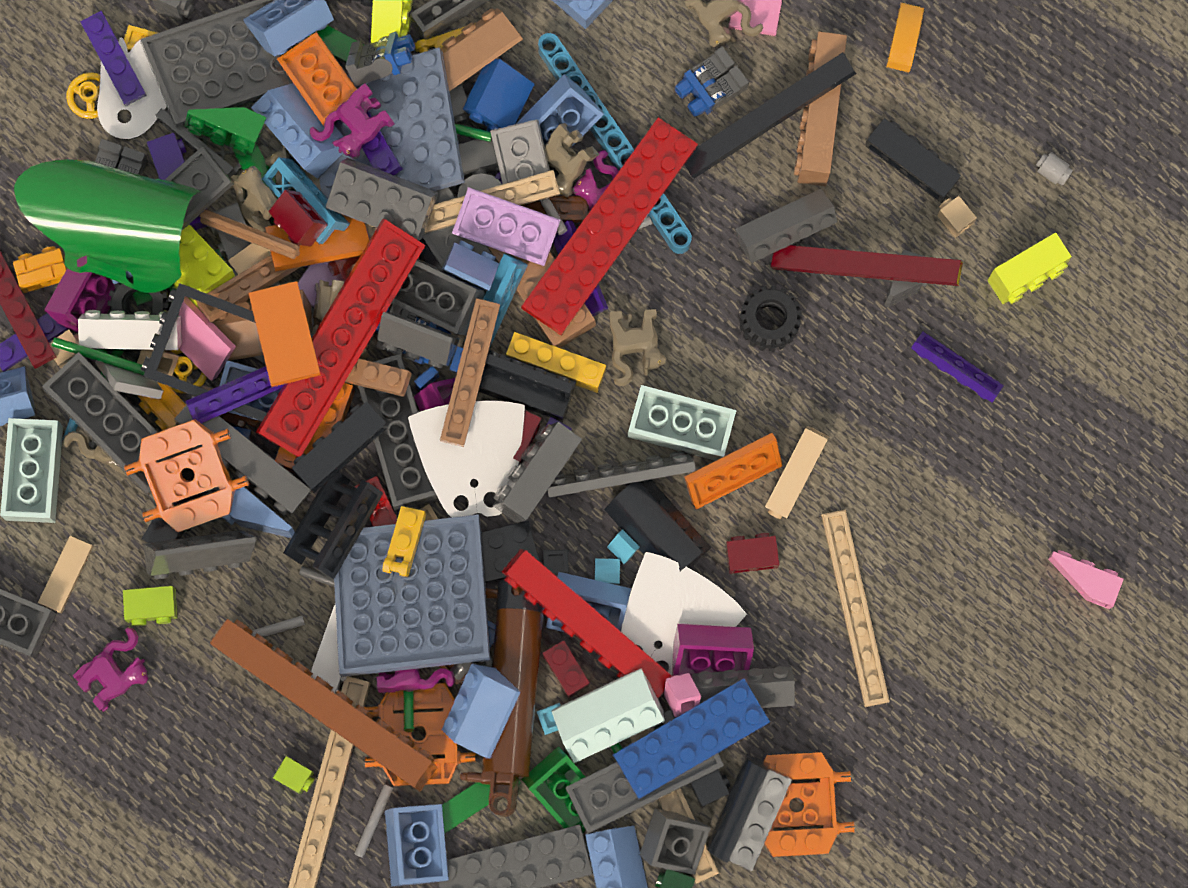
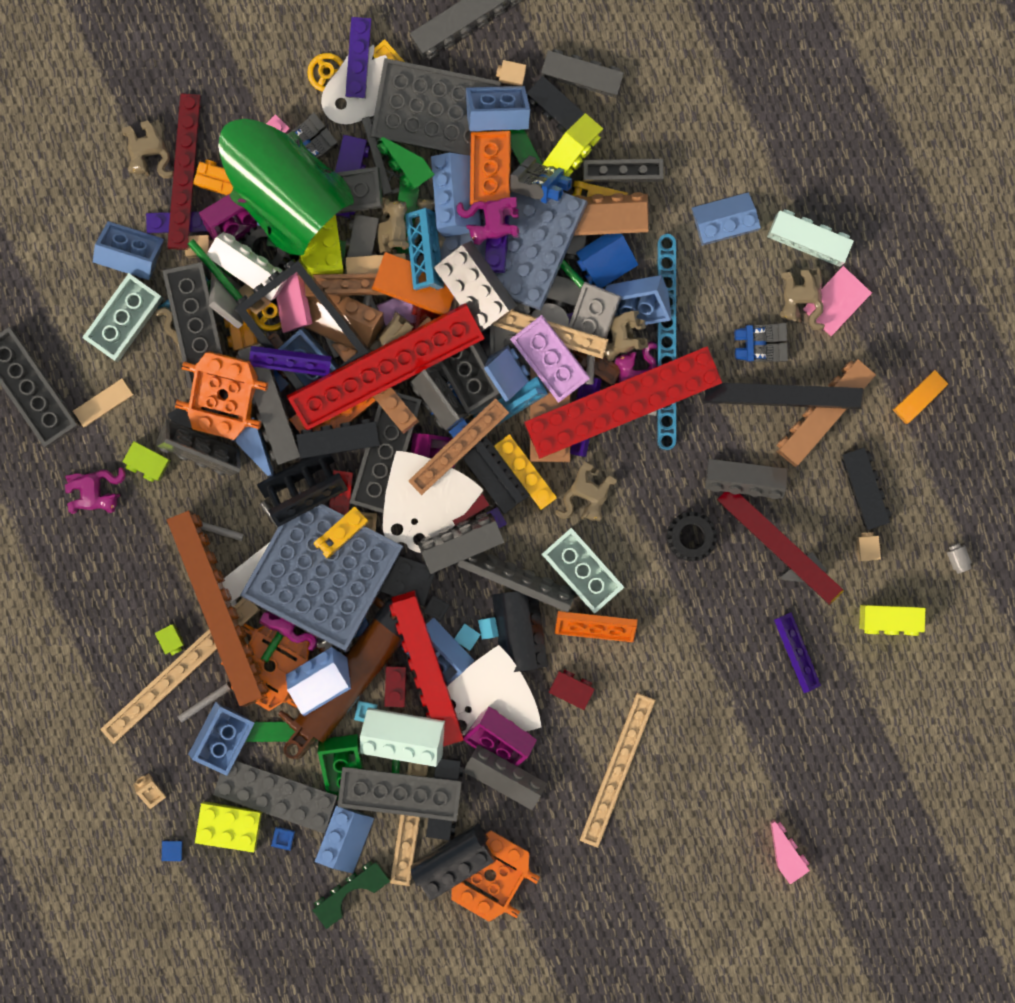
camera: 35 degrees right, 10 degrees up
(250, 234) = (371, 251): medium nougat axle -> none
(284, 334) = (347, 341): orange tile -> none
(297, 218) = (409, 262): dark red brick -> none
(426, 378) = (428, 426): blue tile -> none
(674, 841) = (392, 847): dark grey slope -> none
(681, 694) = (460, 756): bright pink brick -> none
(691, 738) = (446, 790): blue plate -> none
(796, 472) = (639, 654): tan slope -> none

